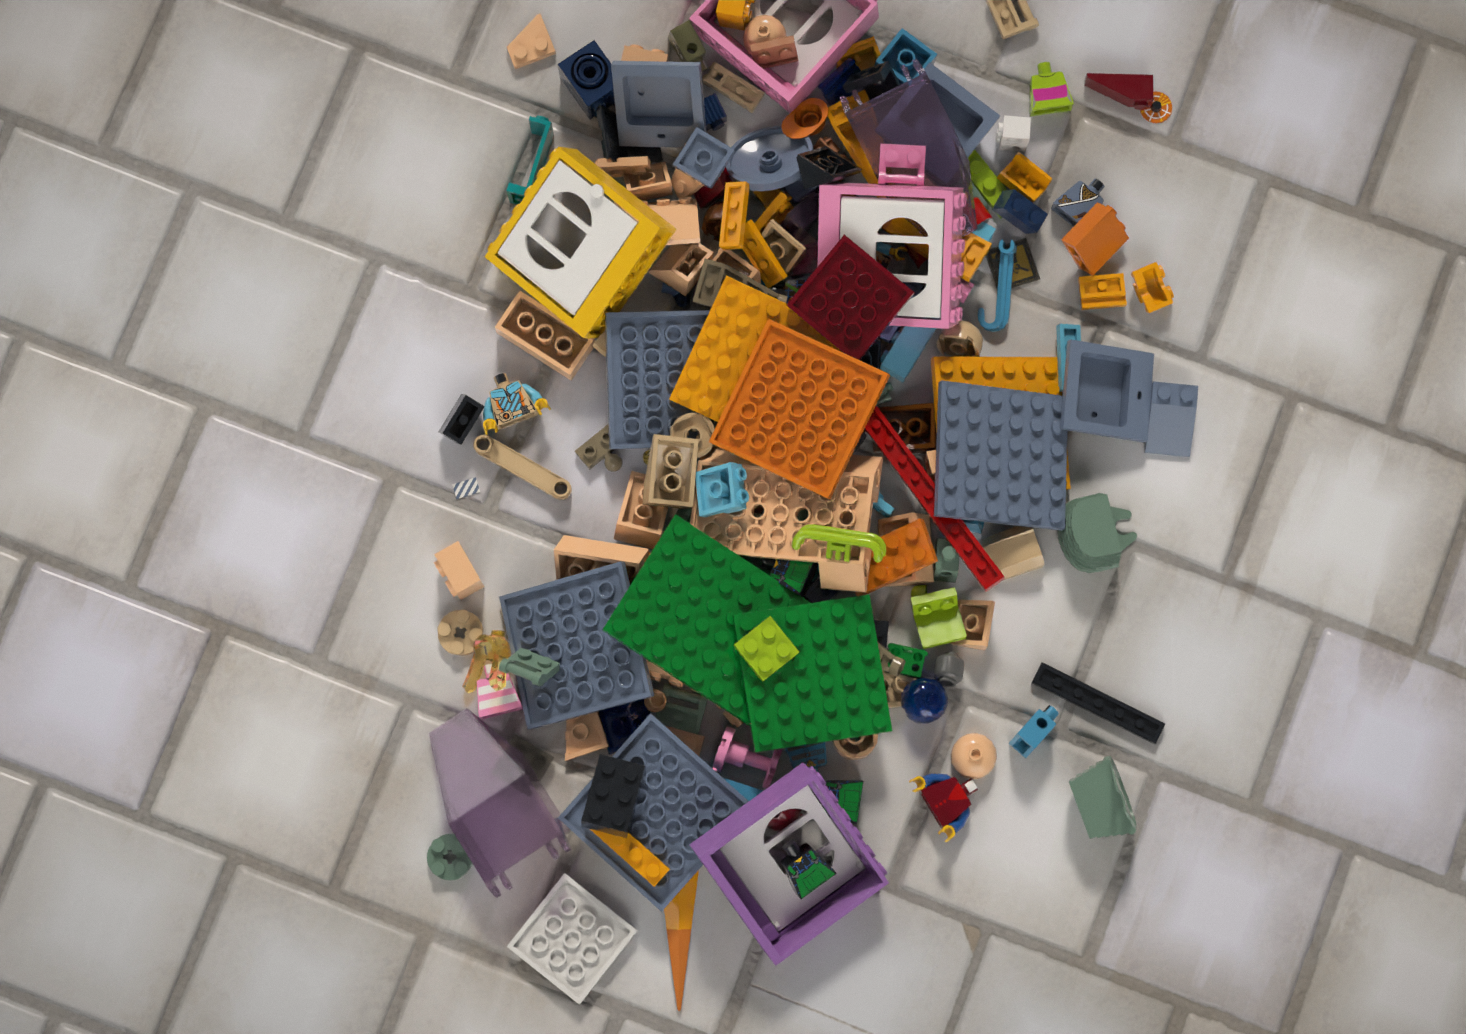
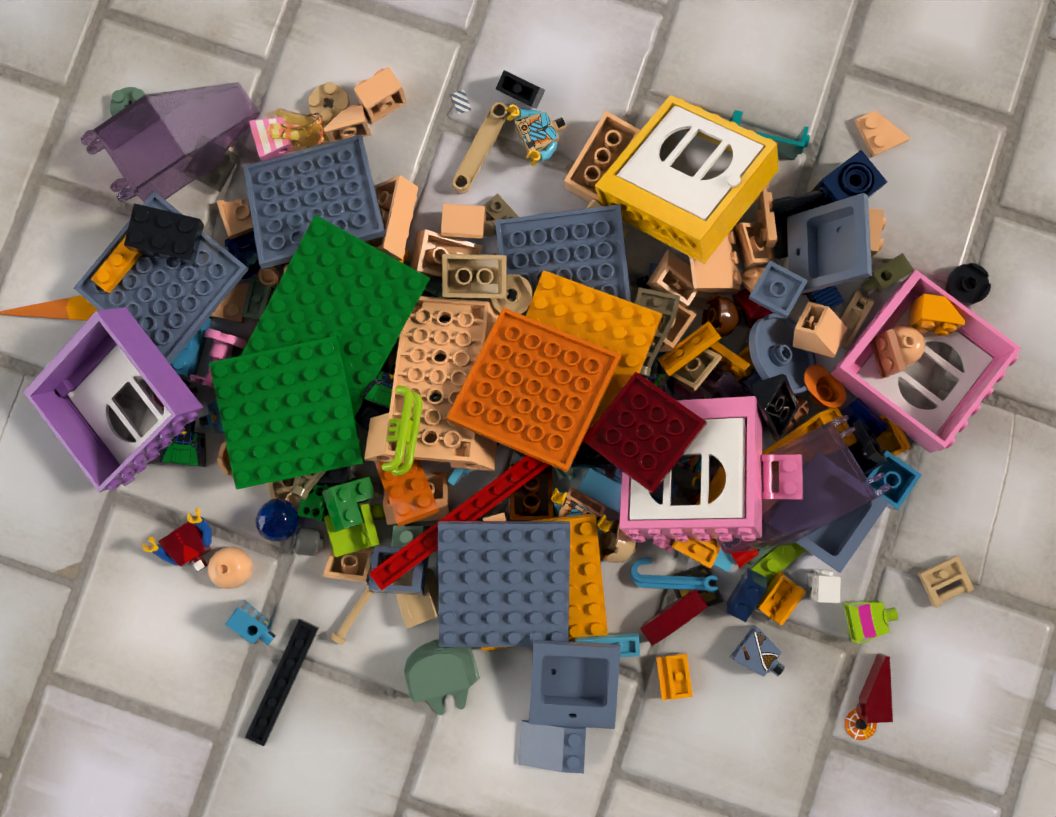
camera: 90 degrees right, 5 degrees up
(486, 605) = (348, 124): none -> light nougat slope
(530, 666) = (294, 162): sand green plate -> none
(572, 938) = (59, 216): white plate -> none
(608, 485) = (463, 221): none -> light nougat slope
(721, 489) = (457, 321): medium azure plate -> none
(734, 215) = (723, 320): light orange plate -> none
(746, 119) = (819, 330): none -> light nougat slope
(766, 648) = (302, 367): lime plate -> none
(805, 868) = (113, 416): torso -> none
(907, 623) = (343, 502): none -> green brick
(919, 378) = (577, 503): none -> torso
(1004, 549) = (418, 580): none -> sand blue window
(1013, 613) = (339, 636): none -> tan bar
(1040, 287) = (673, 617): none -> dark red slope
(1095, 238) = (724, 669): orange brick -> none
(1103, 800) = (181, 691): sand green piece -> none
(1150, 287) = (678, 724): light orange cylinder -> none

